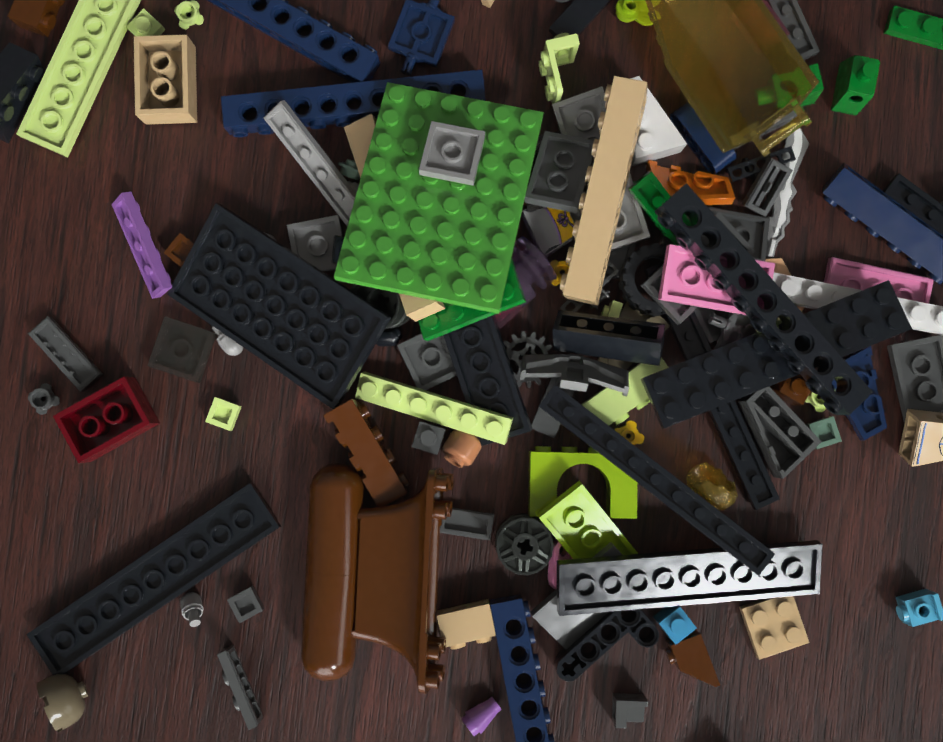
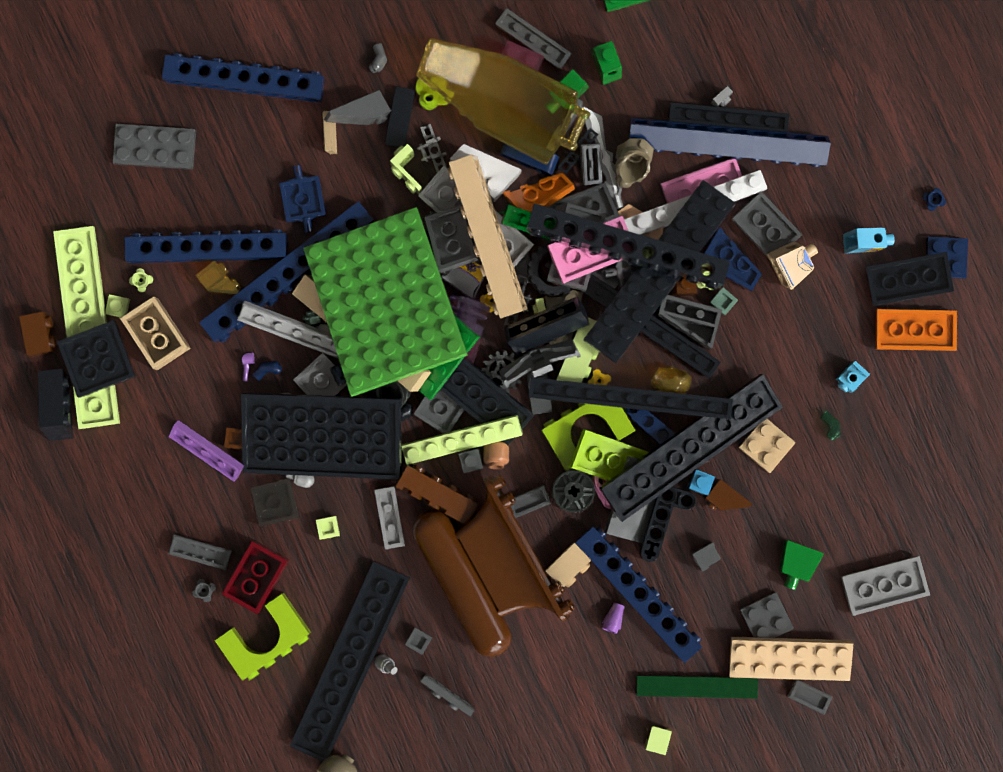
camera: 30 degrees left, 0 degrees up
(41, 508) = (248, 661): none -> lime arch
(81, 67) = (96, 359): none -> black plate
(250, 172) = (247, 359): none -> medium lavender hand
(267, 194) = (267, 367): none -> dark blue arm
(270, 62) = (216, 281): none -> clear yellow slope
(299, 445) = (389, 517): none -> light grey plate
(452, 153) = (376, 271): light grey plate -> none
(603, 54) = (434, 156): none -> light grey piece
(657, 522) = (650, 424): none -> dark blue leg
(818, 212) = (632, 161): none -> dark tan piece
(865, 648) = (834, 426): none -> clear green arm

